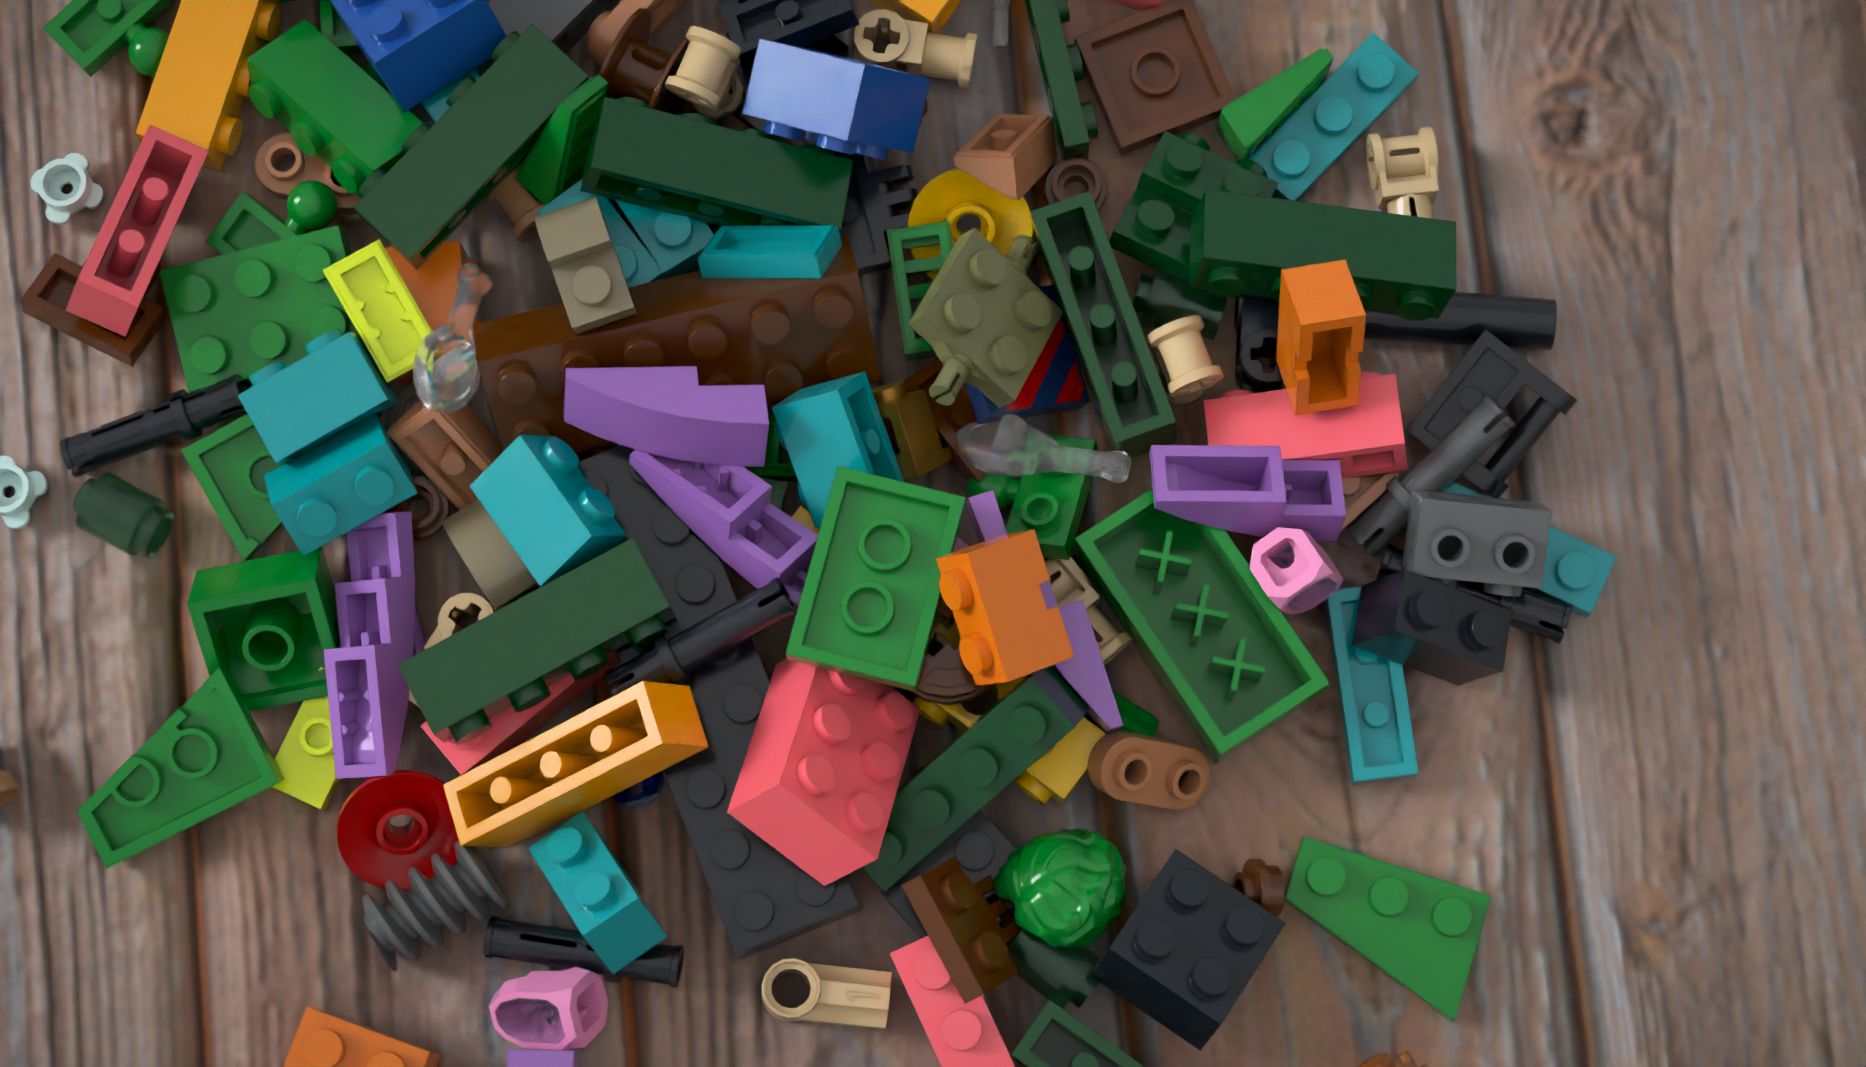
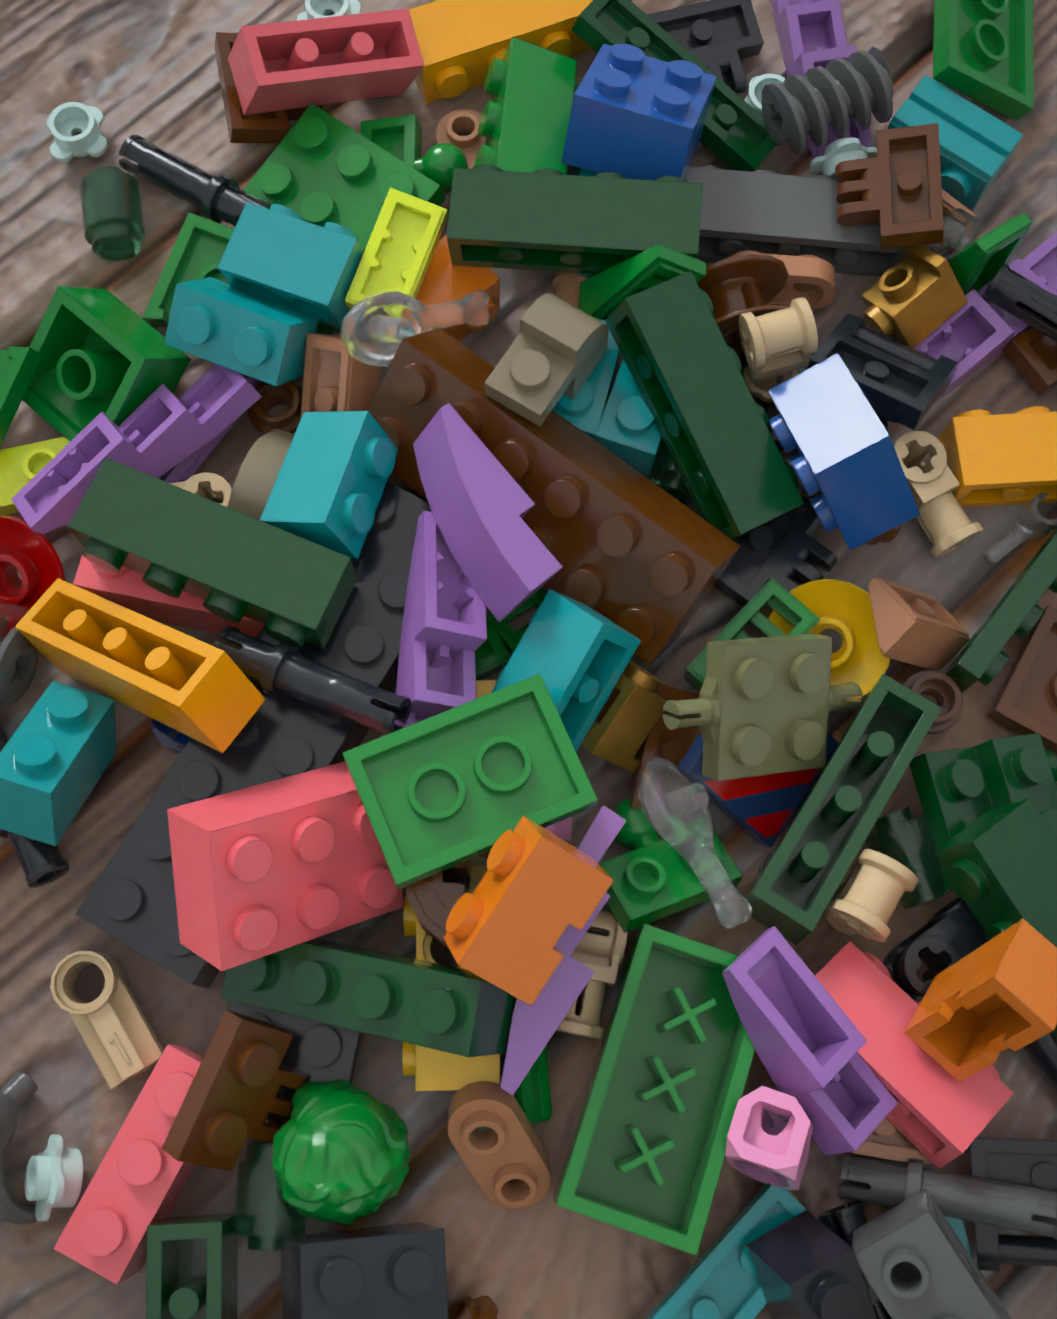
camera: 45 degrees right, 5 degrees down
(770, 251) = (677, 495): teal tile -> none

